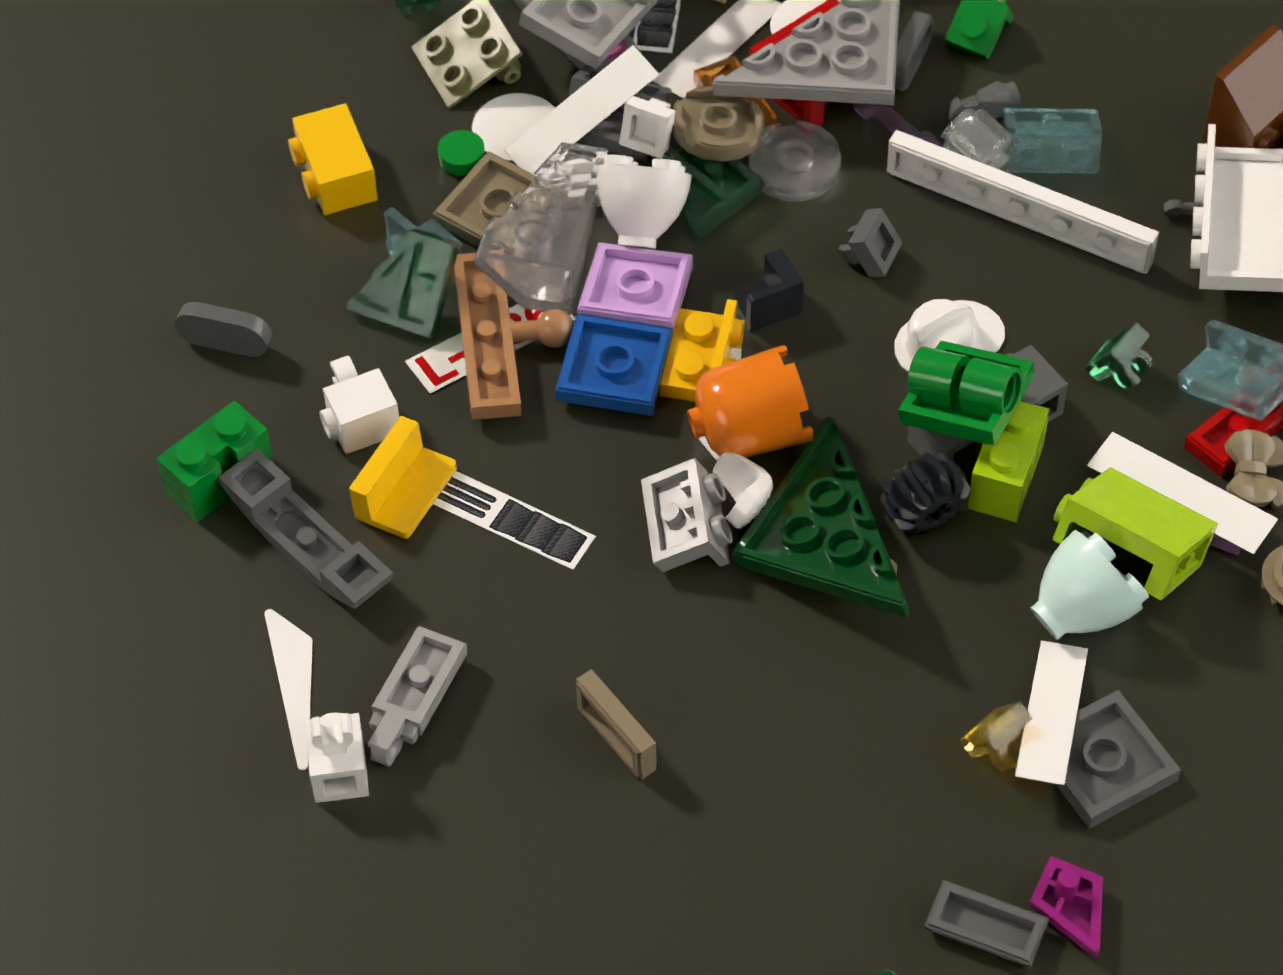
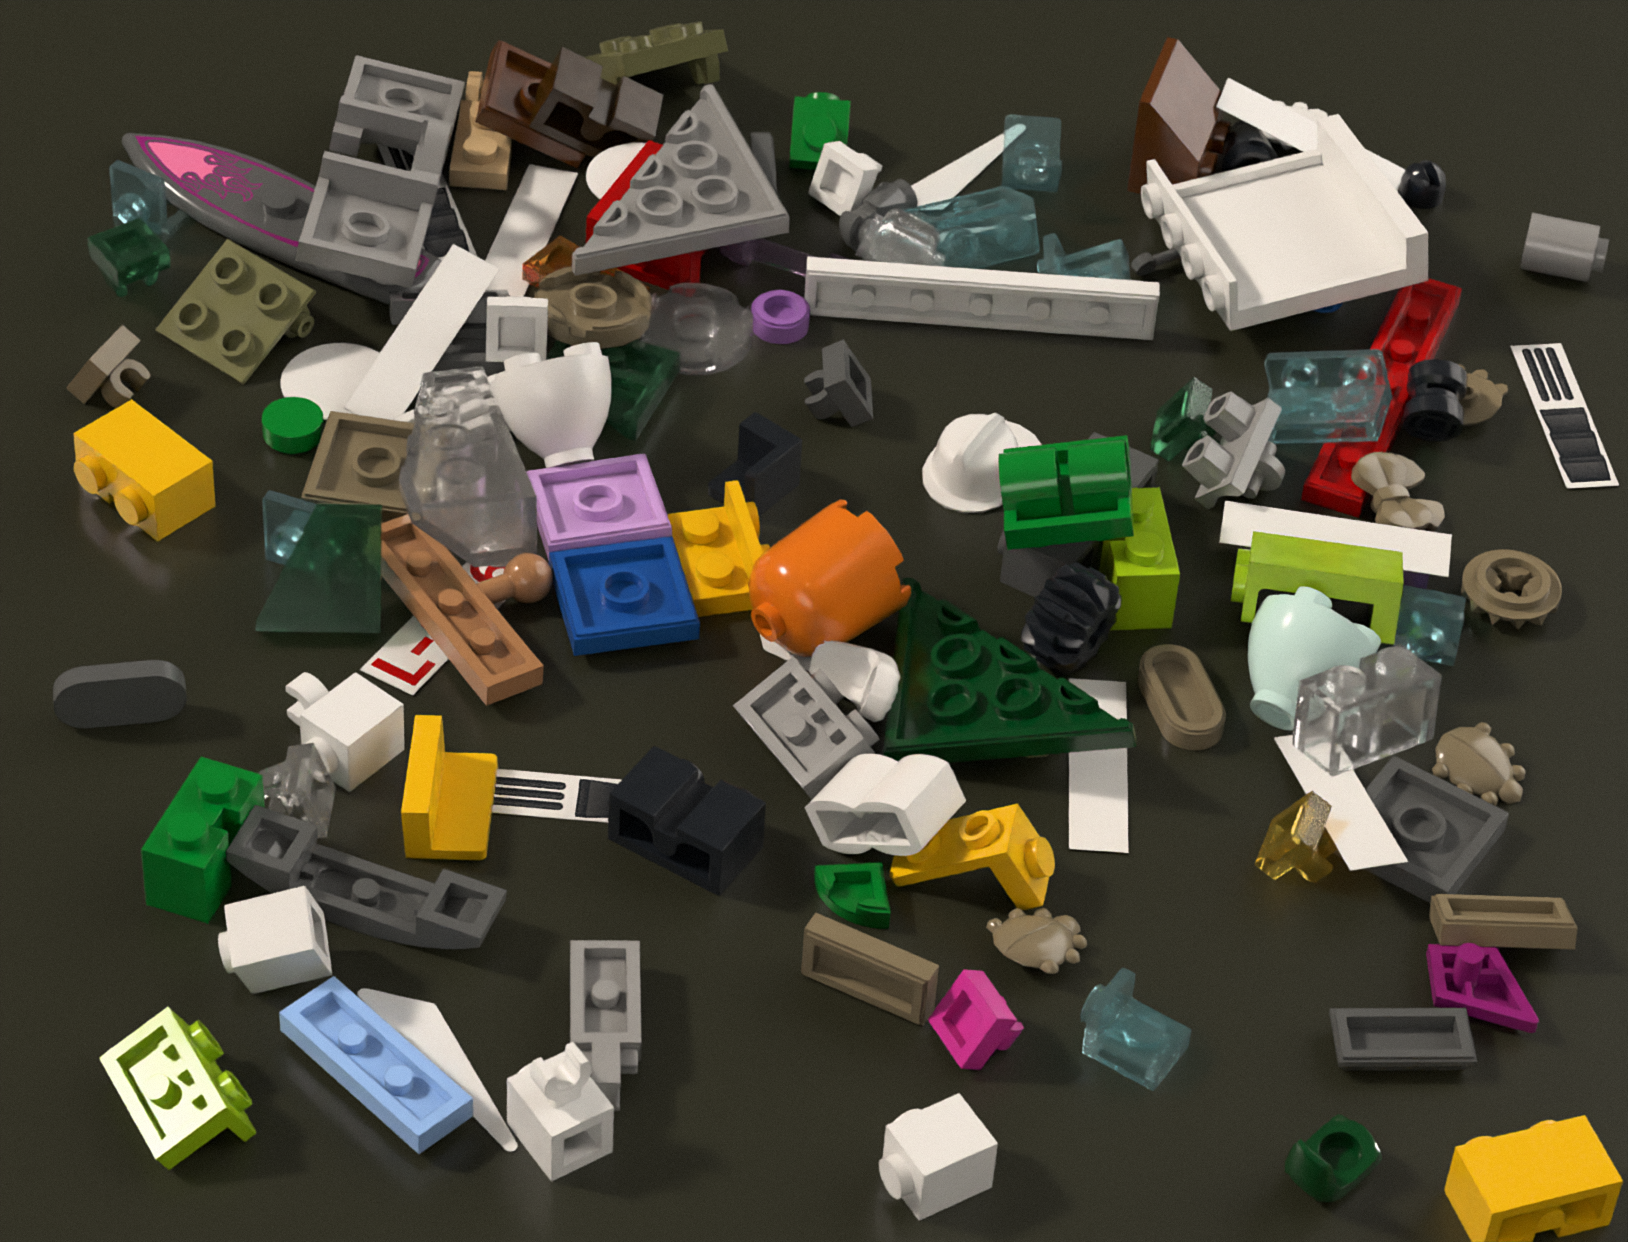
camera: 30 degrees left, 10 degrees down
(101, 642) = (176, 1087): none -> bracket
(217, 556) = (275, 940): none -> white brick
(239, 673) = (376, 1064): none -> light blue plate
(302, 446) = (301, 787): none -> clear tile
(355, 67) = (108, 368): none -> dark tan tile
(553, 560) = (685, 824): none -> black brick
(578, 889) = (937, 1156): none -> white brick
(650, 658) = (855, 892): none -> green tile
(668, 793) = (974, 1020): none -> dark pink tile
(698, 598) = (885, 804): none -> white brick
(758, 656) = (990, 839): none -> yellow bracket
(759, 743) = (1038, 939): none -> dark tan piece
(782, 843) = (1130, 1034): none -> clear light blue bracket
(864, 169) = (780, 317): none -> medium lavender tile
(883, 633) = (1100, 782): none -> white sticker
(974, 67) = (843, 177): none -> white tile
(986, 583) = (1181, 697): none -> dark tan tile
(1065, 90) = (954, 177): none -> white sticker
(1111, 650) = (1366, 712): none -> clear brick
(1121, 858) = (1502, 921): none -> dark tan tile
(1123, 407) = (1243, 457): none -> light grey hips
(1125, 200) = (1102, 261): none -> clear light blue bracket
(1134, 87) = (1031, 153): none -> clear light blue bracket
(1186, 720) = (1479, 764): none -> dark tan piece
(1216, 588) = (1430, 624): none -> clear light blue bracket

